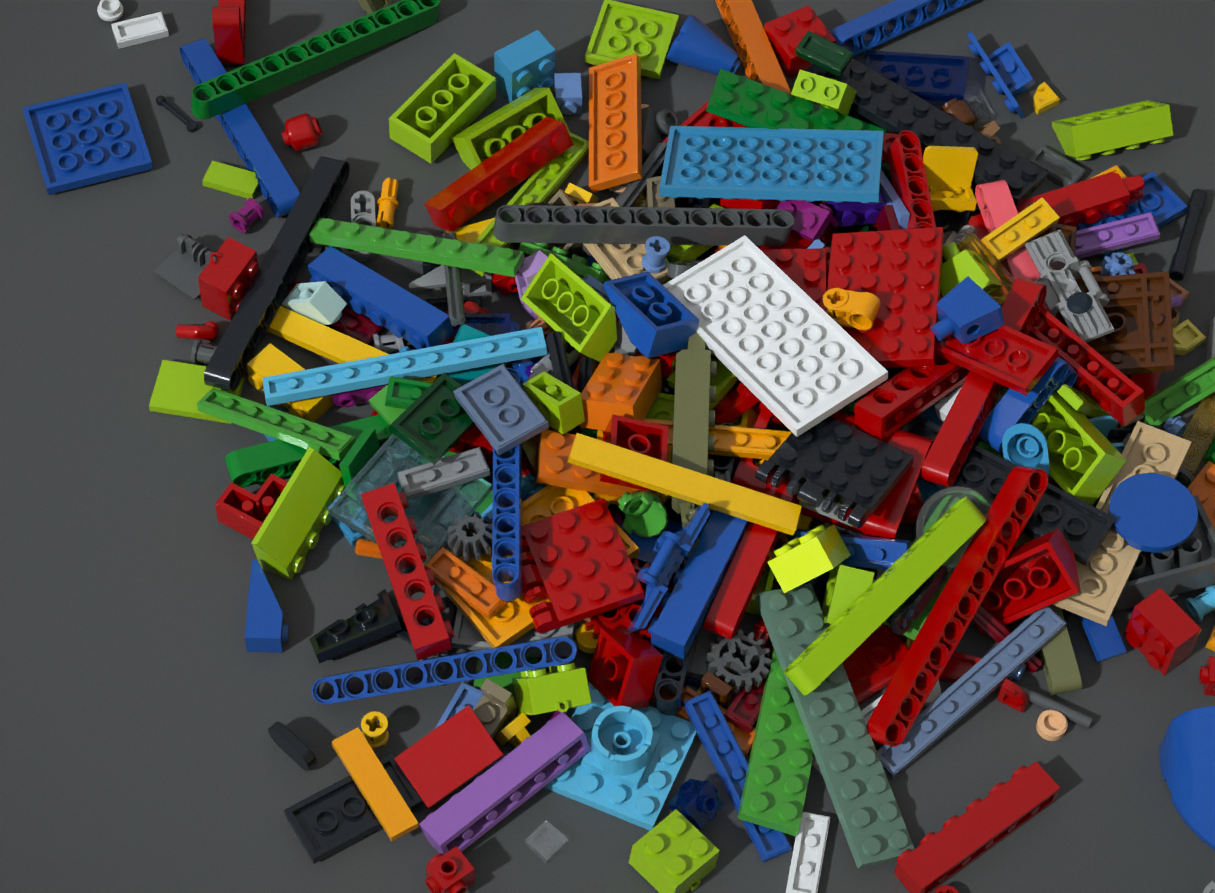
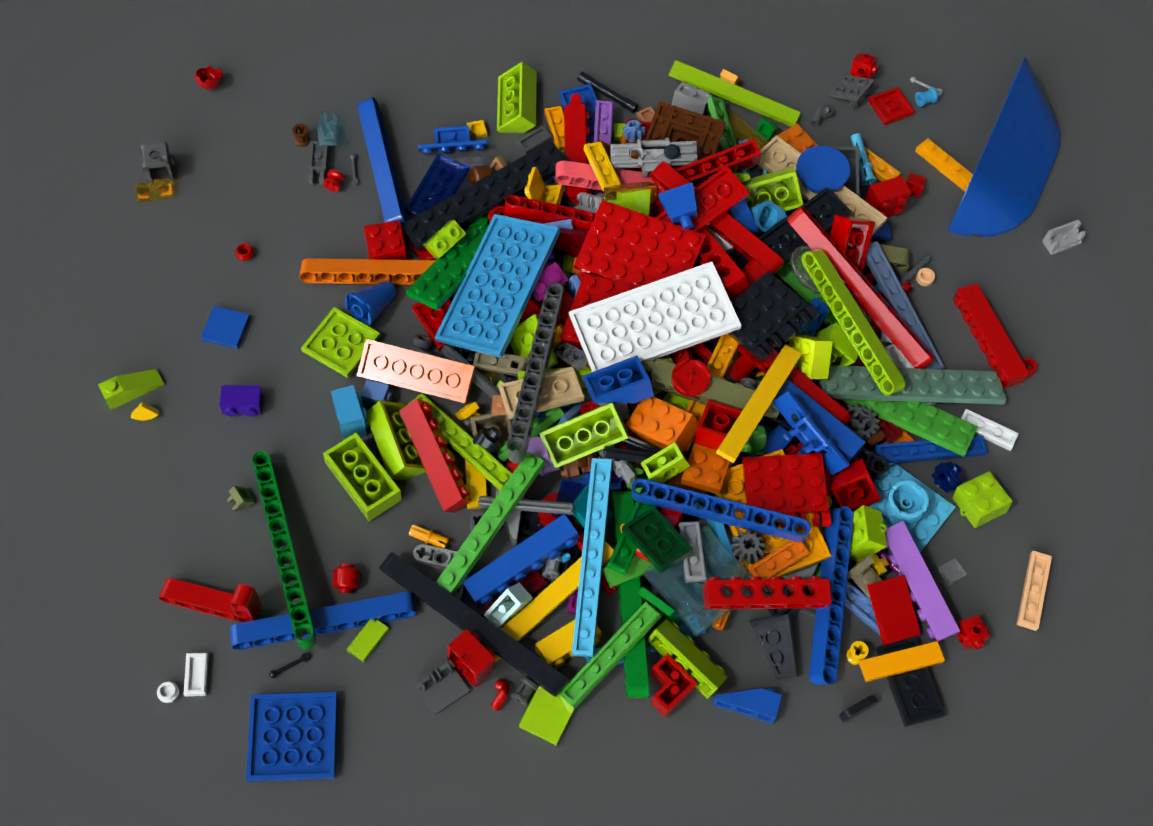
camera: 75 degrees left, 5 degrees up
(252, 208) = (408, 635): magenta bush -> none
(501, 409) = (668, 496): sand blue tile -> none
(656, 250) = (560, 365): medium blue bush -> none
(693, 395) = (690, 377): none -> red tile
(824, 53) = (412, 229): dark green tile -> none
(854, 309) = (654, 266): light orange piece -> none

